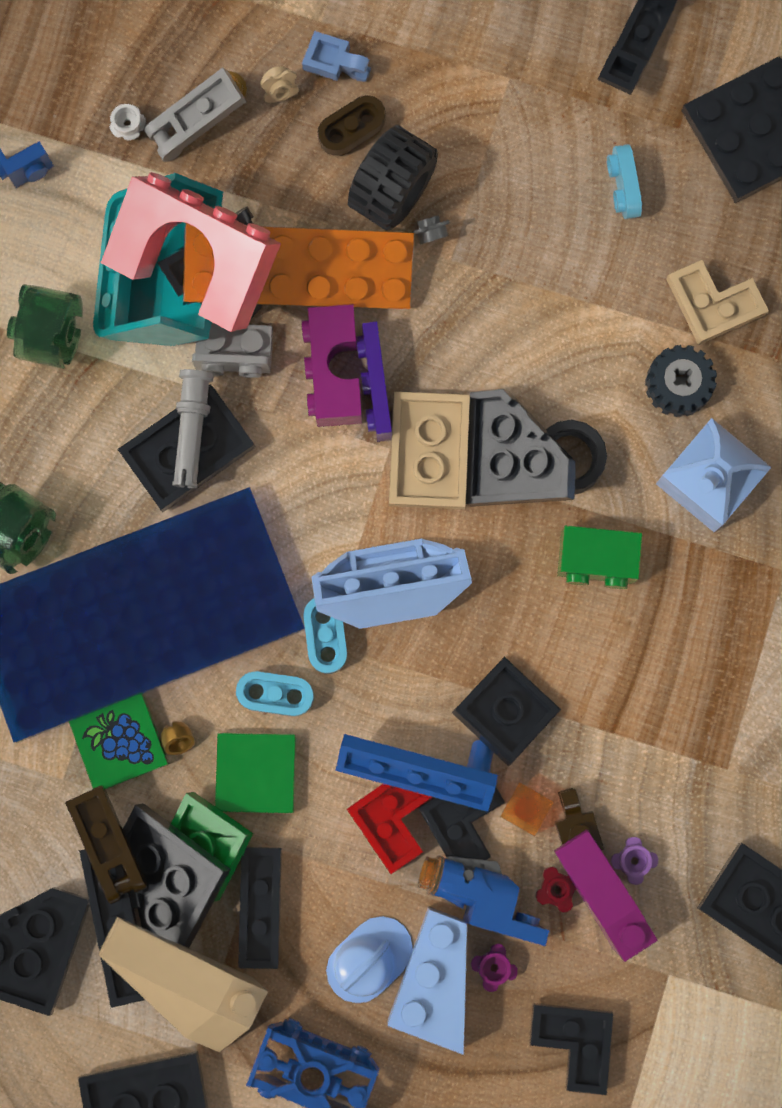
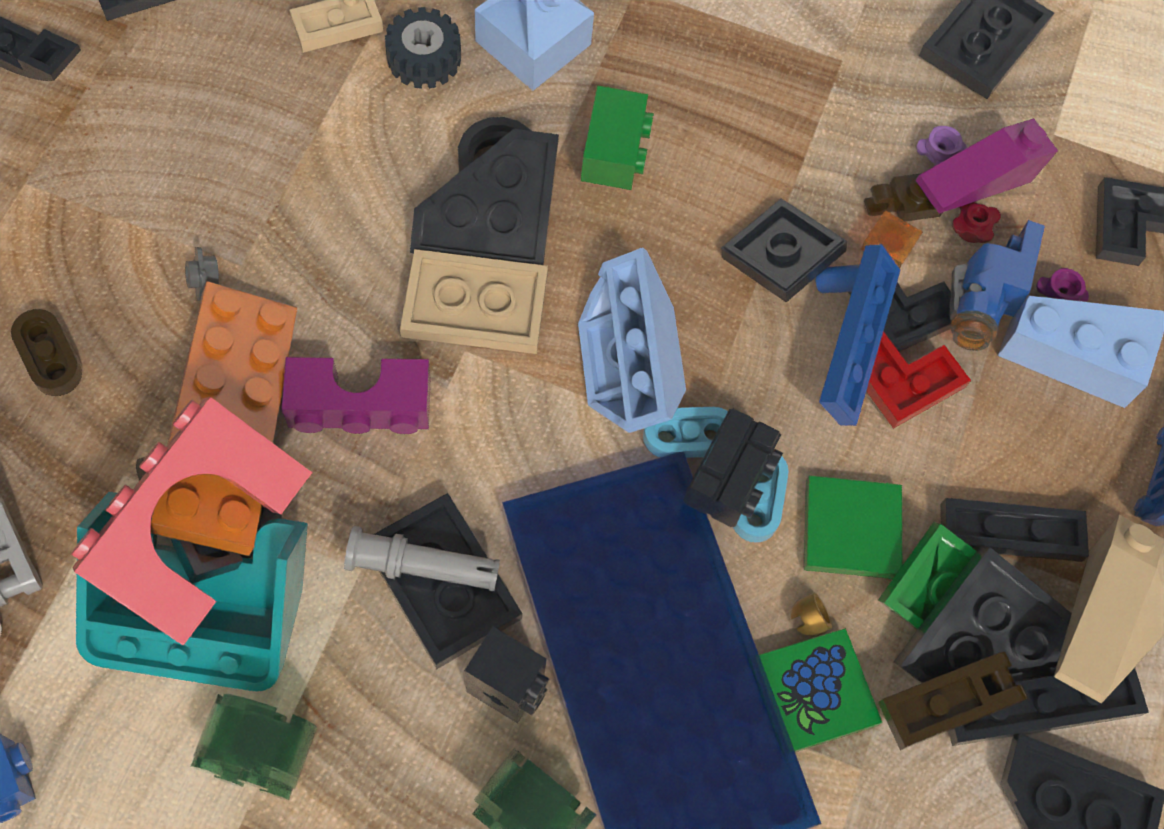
camera: 95 degrees left, 15 degrees down
(104, 500) = (507, 675): none -> black brick
(236, 351) = (324, 506): light grey bracket -> none
(283, 665) = (732, 468): none -> black brick
(369, 959) = (1063, 419): light blue piece -> none
(374, 382) = (367, 348): dark purple plate -> none
(392, 177) = (131, 293): black tyre -> none
(627, 196) = (182, 71): medium azure plate -> none

